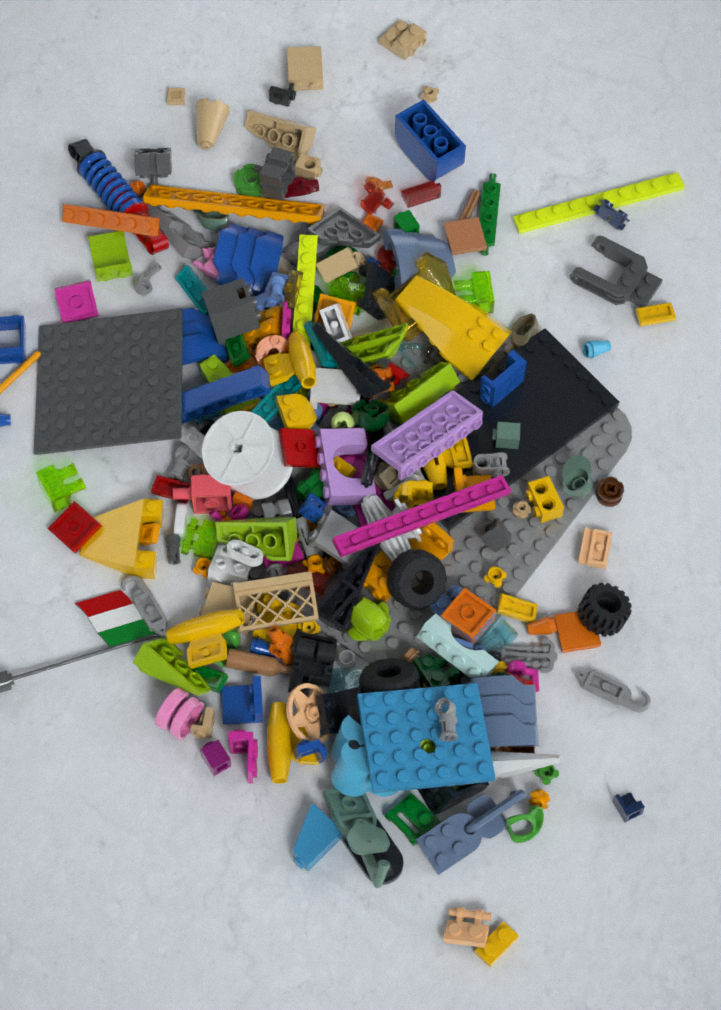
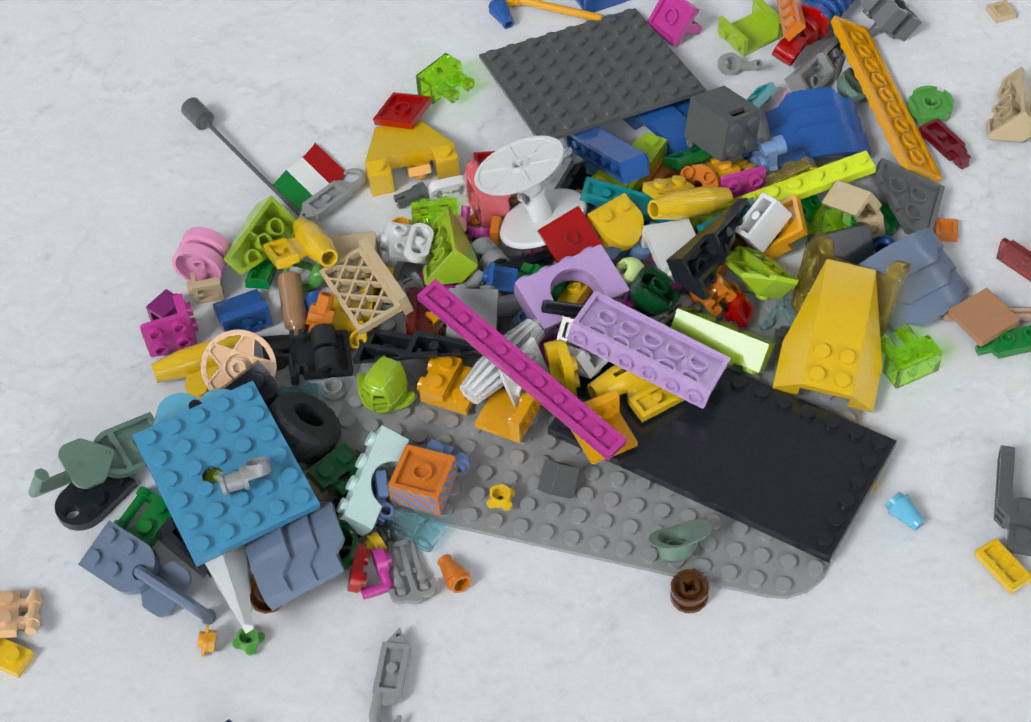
camera: 75 degrees right, 10 degrees down
(138, 187) = (859, 18): orange plate -> none
(210, 121) = (979, 42): tan cone -> none
(276, 173) = (942, 109): dark grey brick -> none
(307, 748) = (193, 377): blue bracket -> none
(308, 167) = (982, 144): tan brick -> none
(315, 838) = (87, 421): dark azure slope -> none
(374, 199) = (980, 214): clear red plate -> none
(379, 183) = (1004, 214): clear orange animal -> none
(406, 222) = (965, 256): green brick -> none
(411, 654) = (355, 442): medium nougat plate -> none
(431, 584) = (466, 399): black tyre -> none
(491, 464) = (653, 440): light grey piece -> none
(494, 391) = (777, 410): blue panel -> none
(507, 435) = (704, 442): sand green brick -> none
(516, 608) = (467, 537): yellow plate -> none
(521, 514) = (610, 502): tan plate -> none
(524, 329) = (885, 422): dark tan piece -> none
(536, 818) = (177, 641): bright green piece -> none
(548, 498) = (637, 518): yellow brick -> none
(573, 634) = (465, 616): orange tile -> none
(595, 548) = (595, 599): light nougat plate -> none
(599, 620) = (508, 610): black tyre -> none

